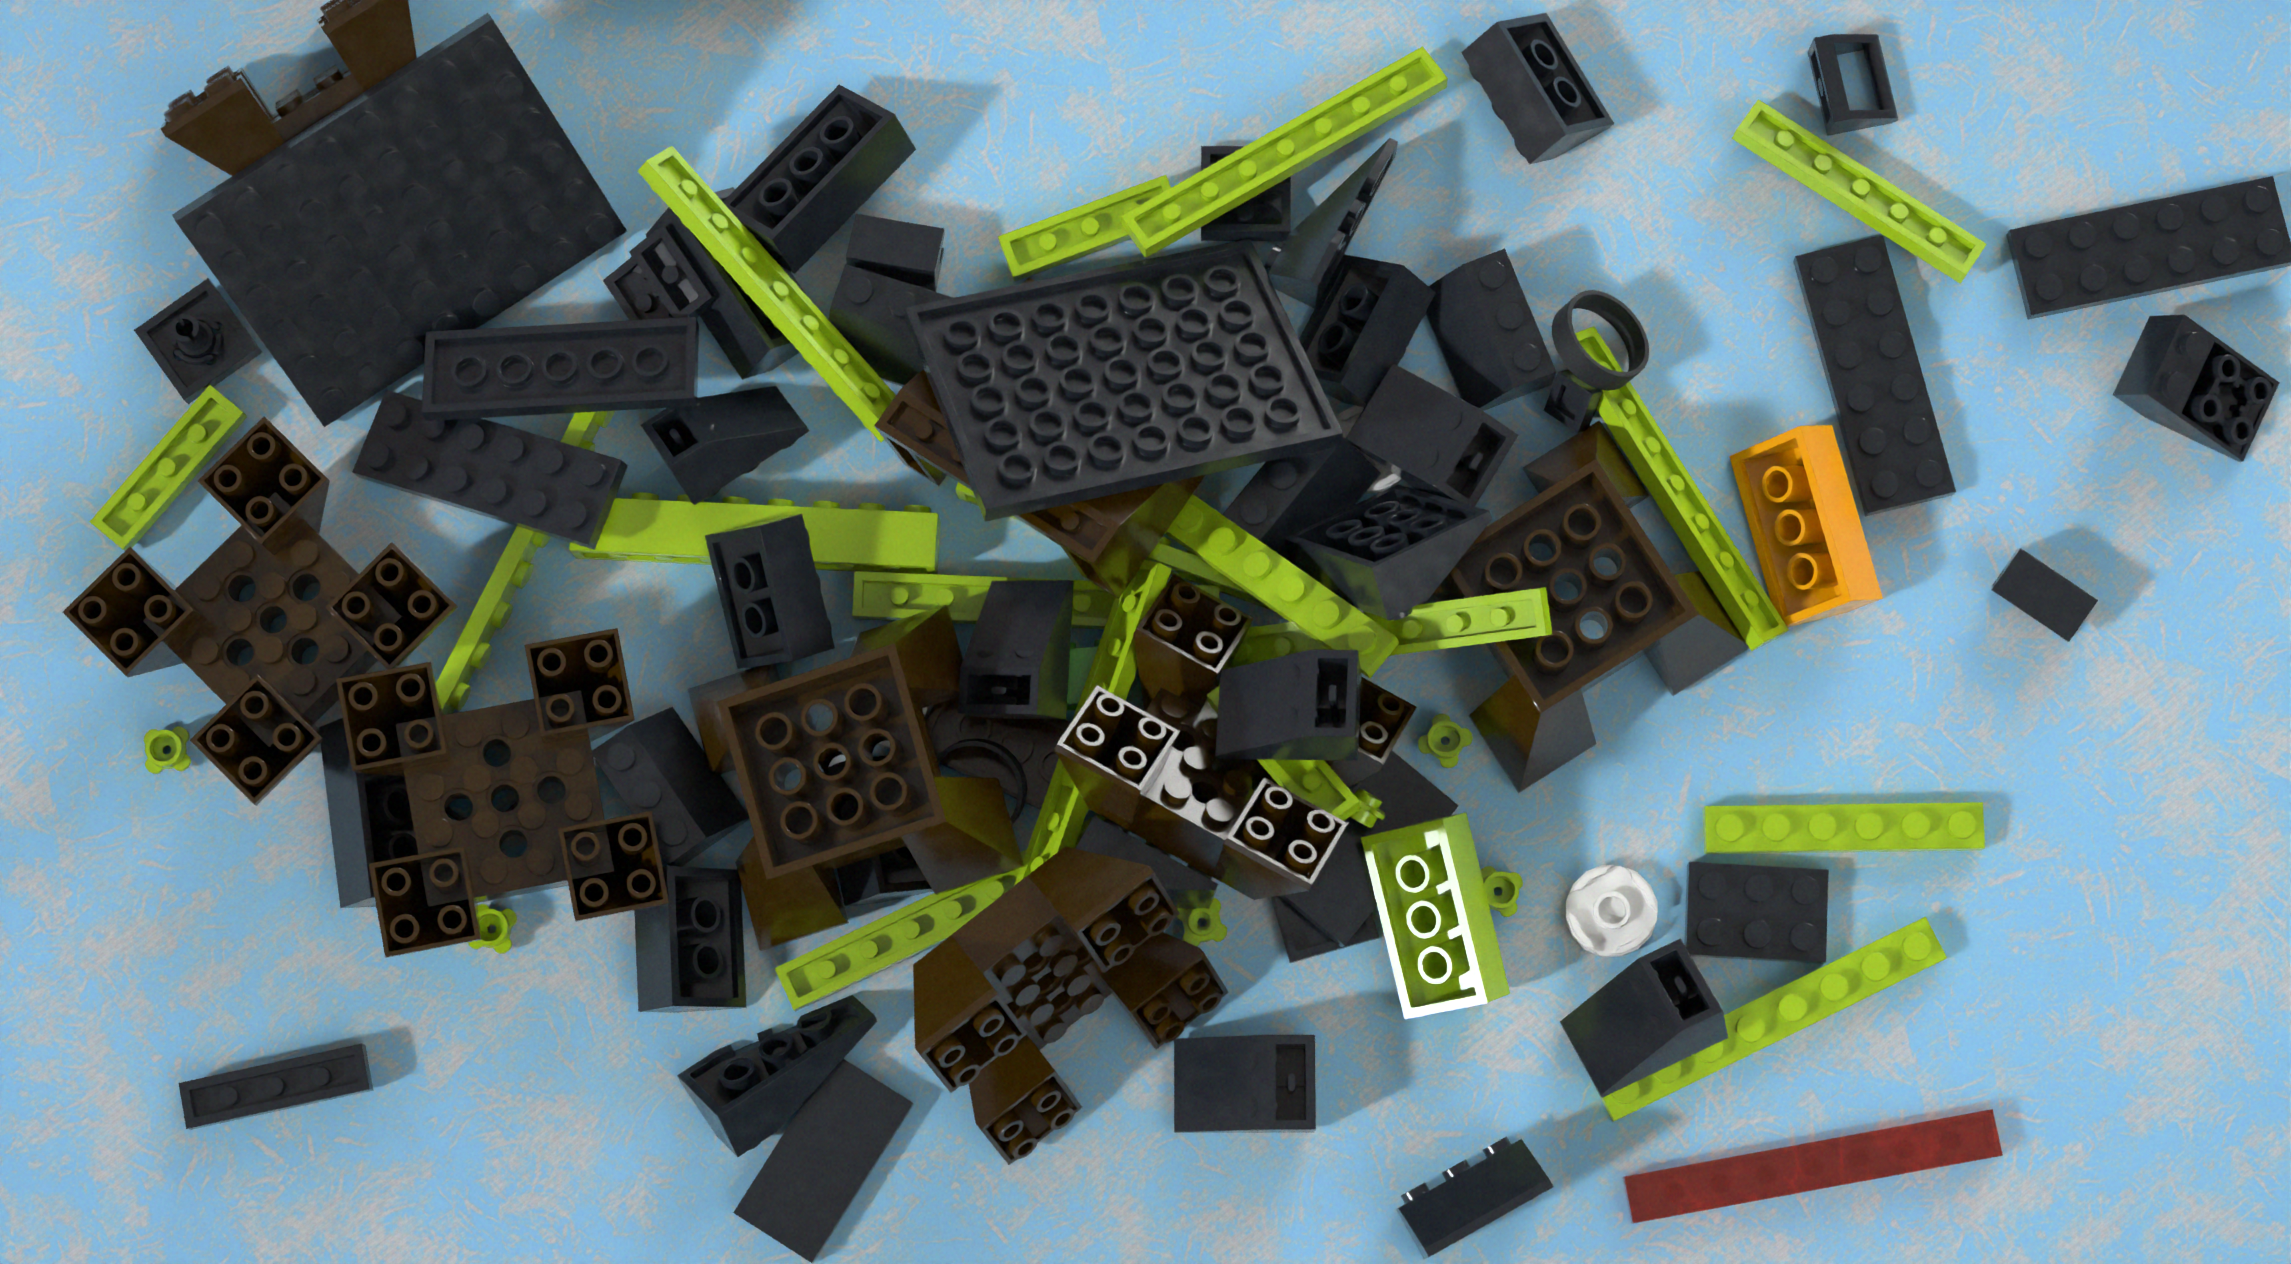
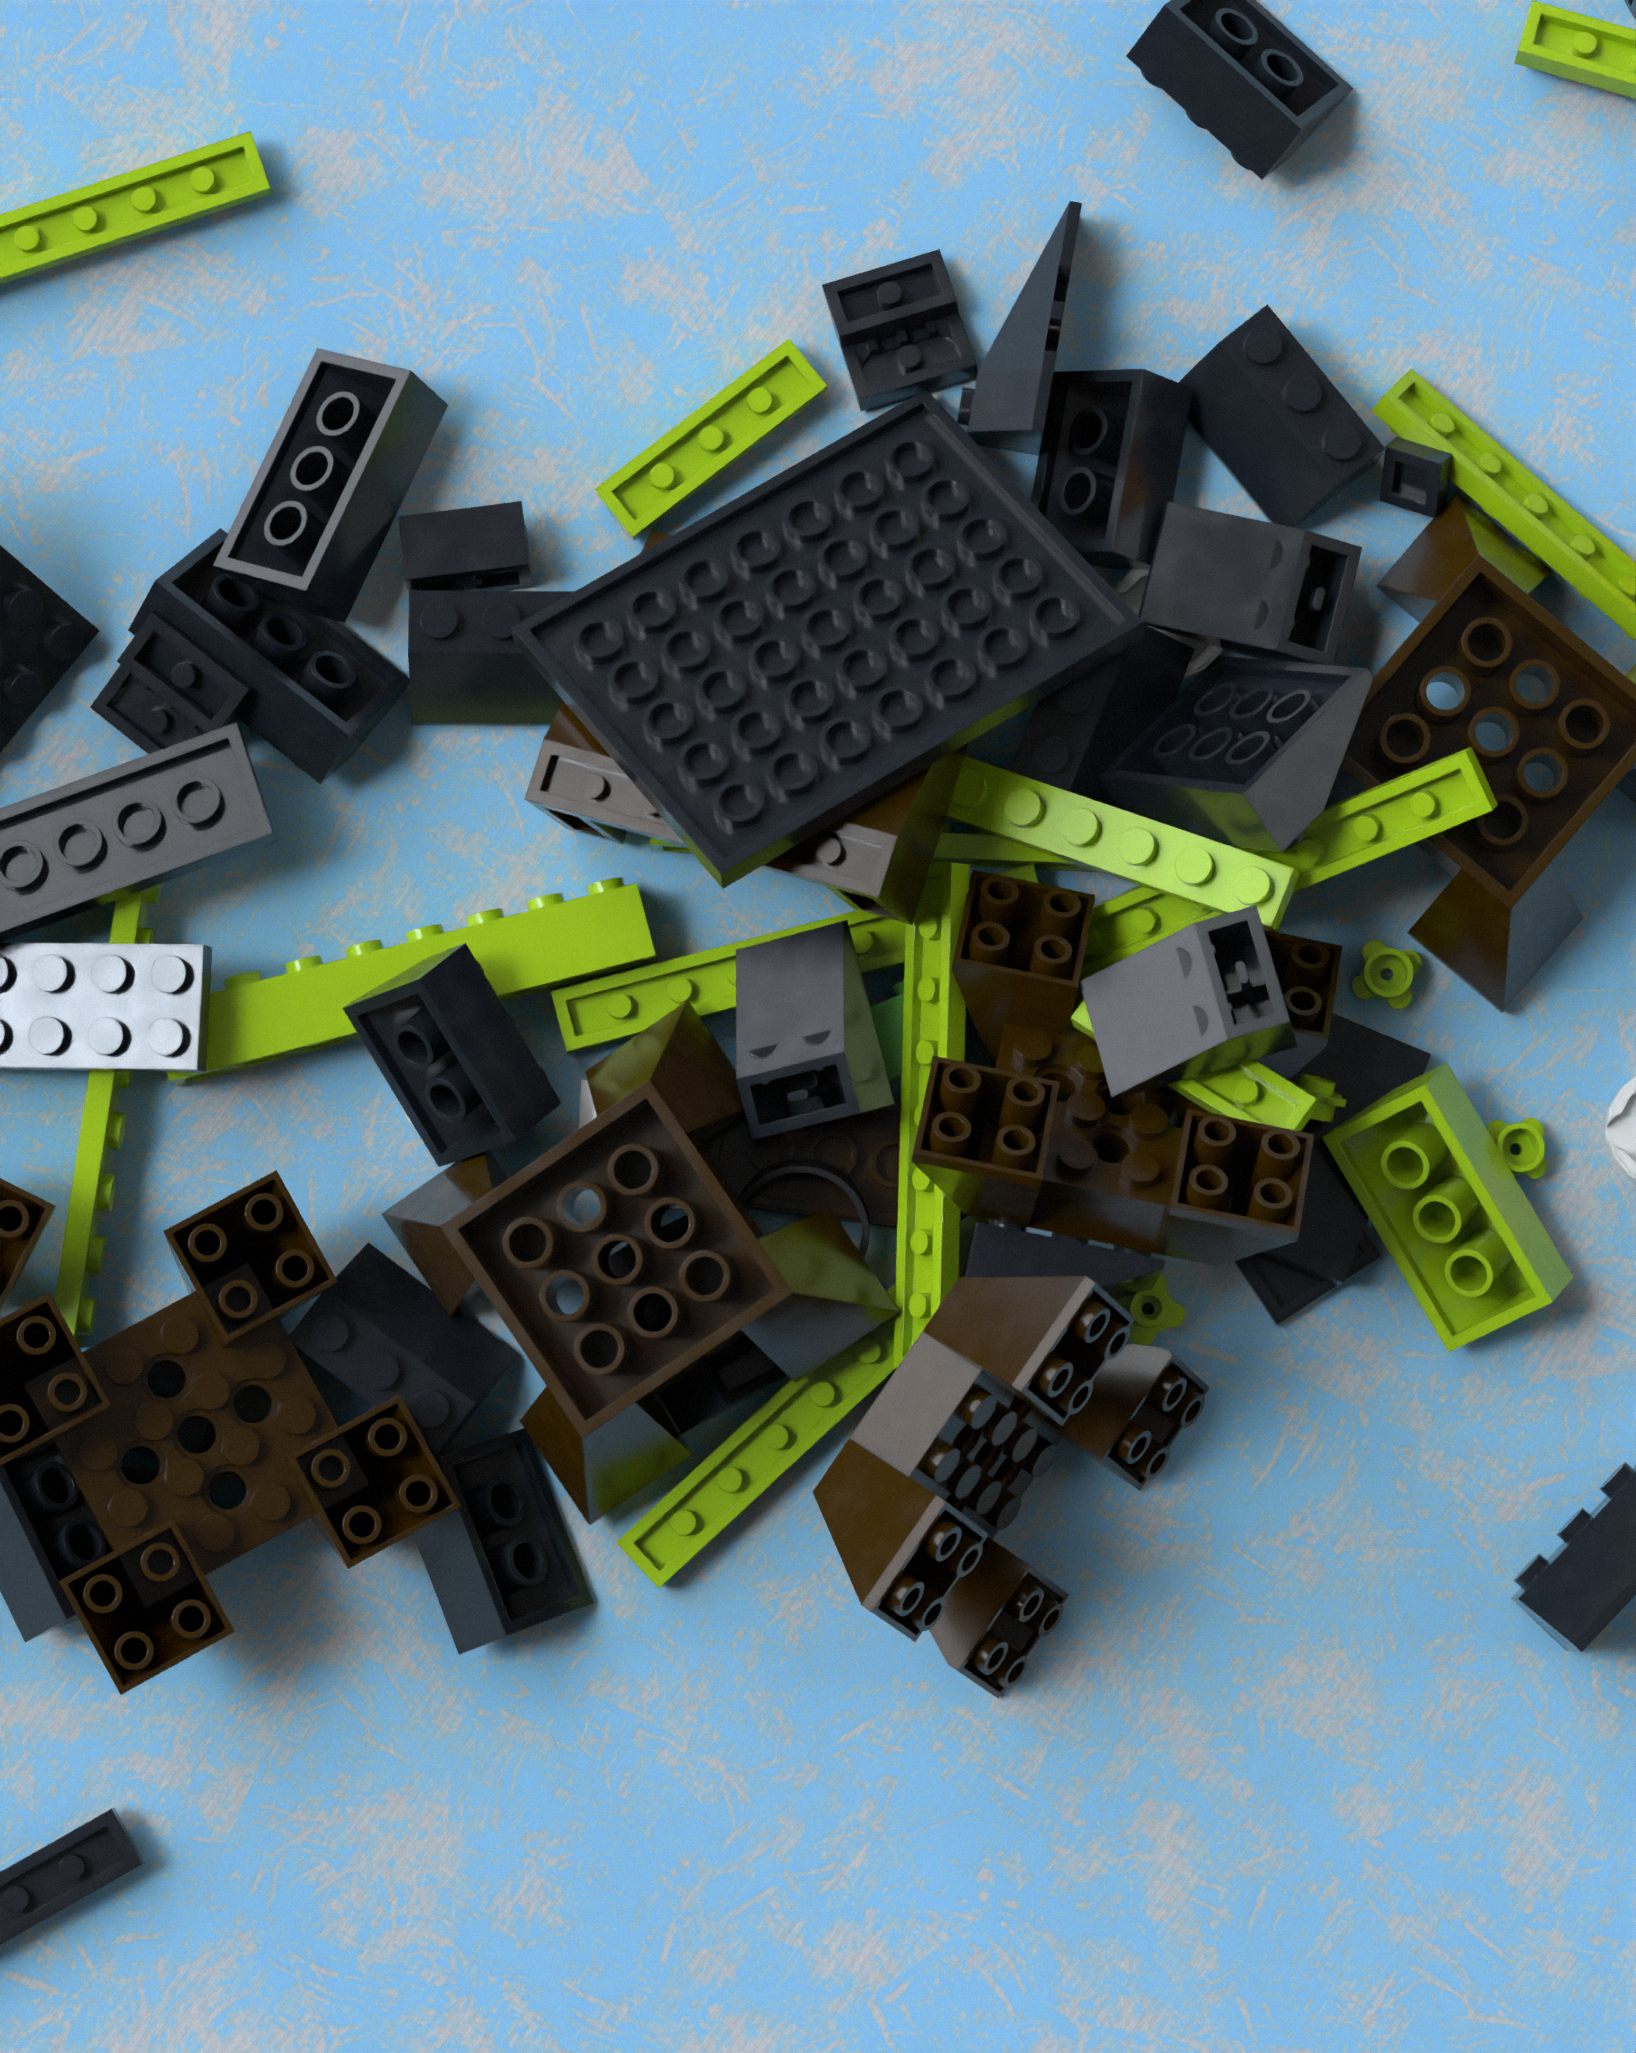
camera: 20 degrees left, 5 degrees up
(500, 939) = (242, 1592): lime plate -> none
(723, 437) = (323, 869): black slope -> none
(761, 1085) = (649, 1694): black wedge -> none
(768, 286) = (322, 653): lime plate -> none
(823, 1159) = (758, 1765): black tile -> none
(1245, 1084) = (1271, 1501): black slope -> none
(1283, 152) = (936, 261): lime plate -> none
(1622, 320) = (1454, 356): black tyre -> none

